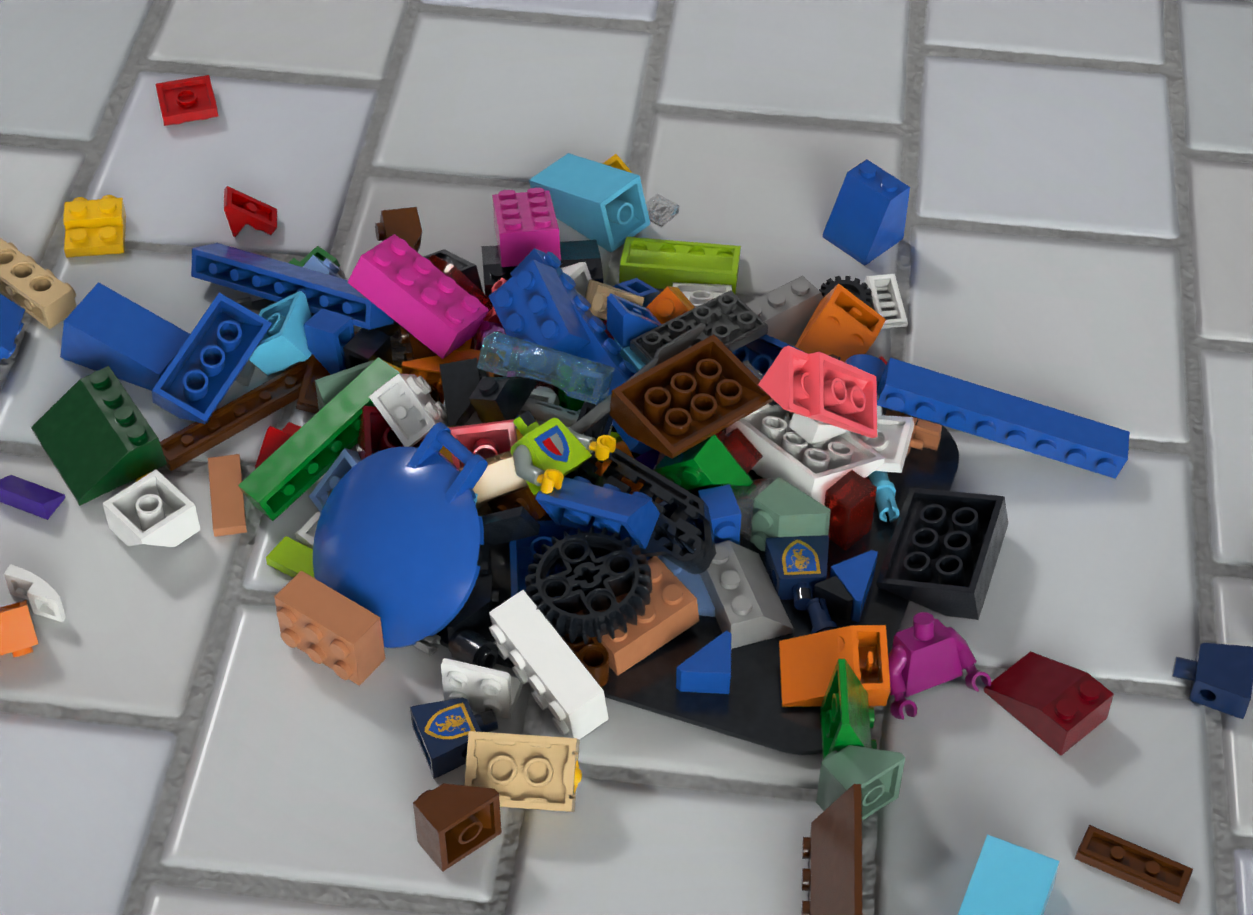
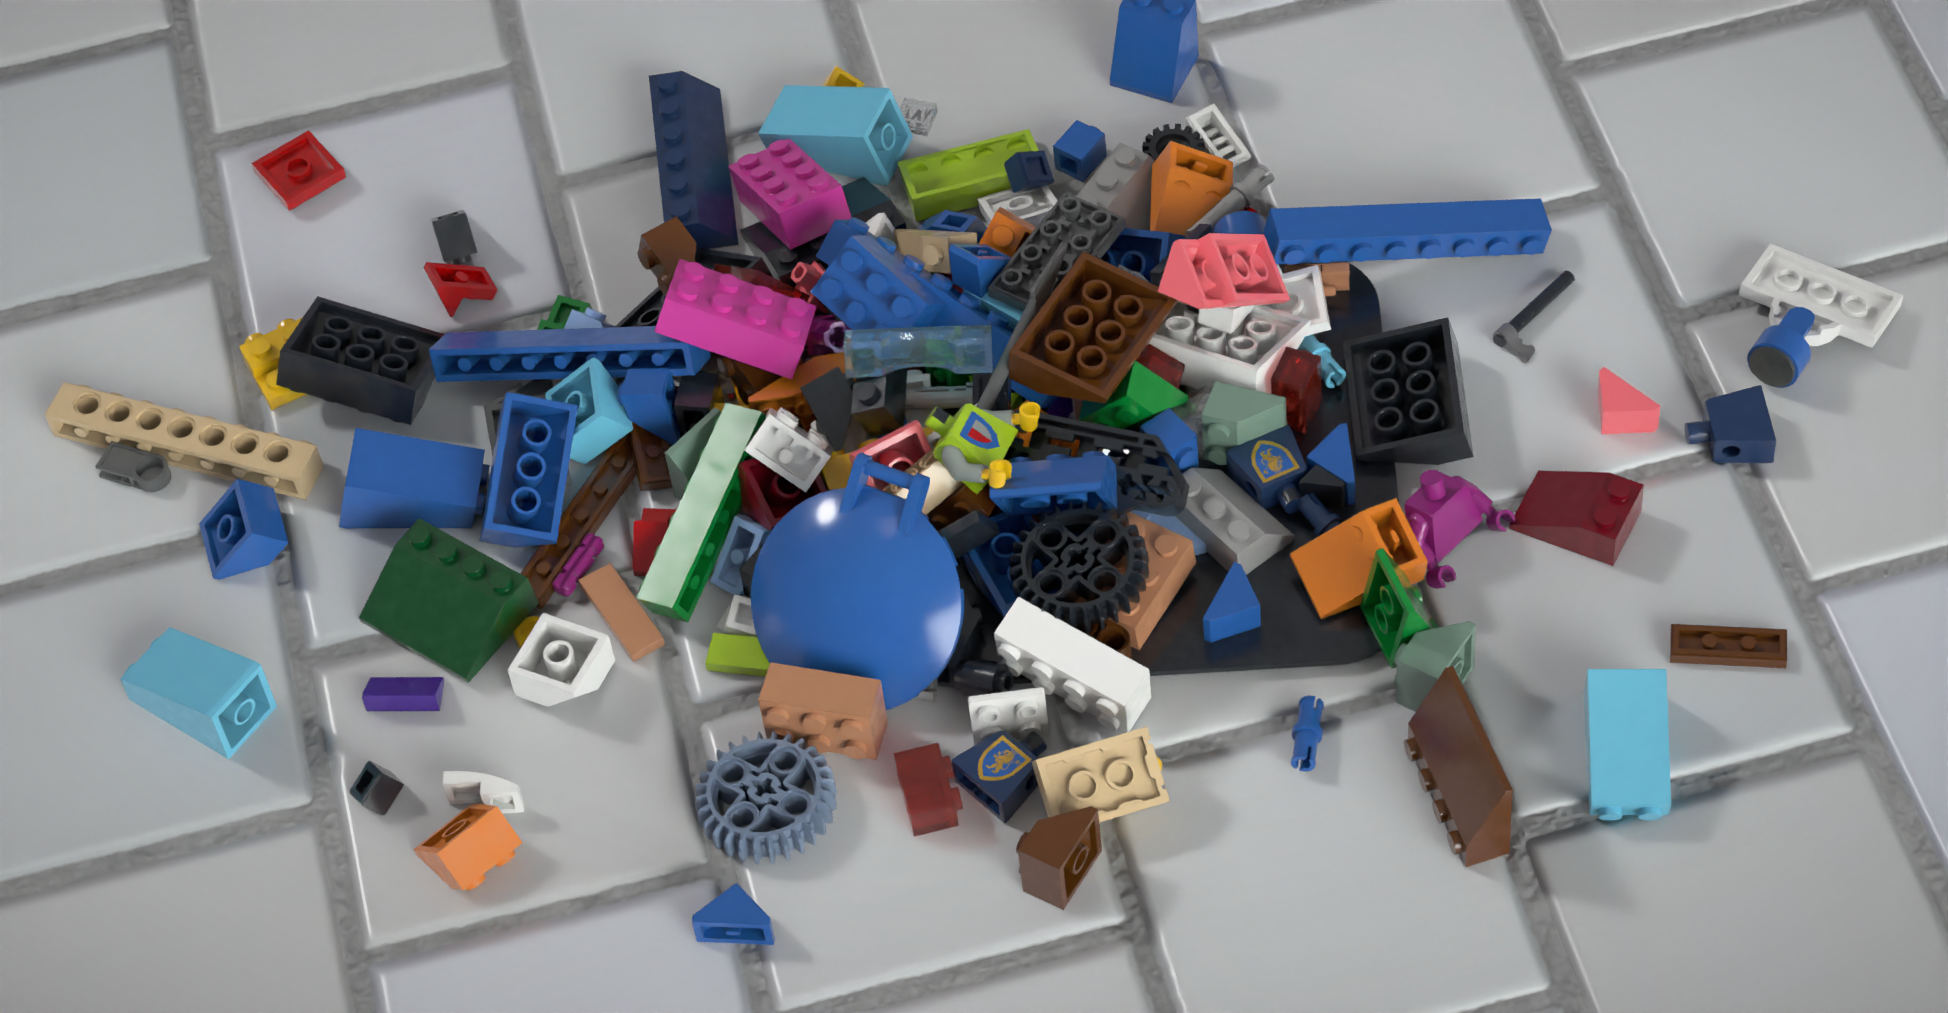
camera: 15 degrees left, 5 degrees up
(139, 240) = (359, 360): none -> black slope
(163, 771) = (733, 919): none -> blue slope
(215, 447) = (578, 565): none -> magenta axle
(266, 179) = (454, 237): none -> black slope
(267, 707) = (765, 797): none -> sand blue gear
(381, 724) = (927, 790): none -> clear red brick
(462, 198) = (693, 158): none -> dark blue slope
(720, 273) = (1028, 171): none -> dark blue slope
(723, 799) = (1307, 733): none -> blue pin
(770, 272) = (1079, 150): none -> blue brick
(879, 345) = (1240, 196): none -> light grey pin
(1054, 531) = (1507, 334): none -> black piece
(1128, 625) = (1624, 407): none -> coral slope

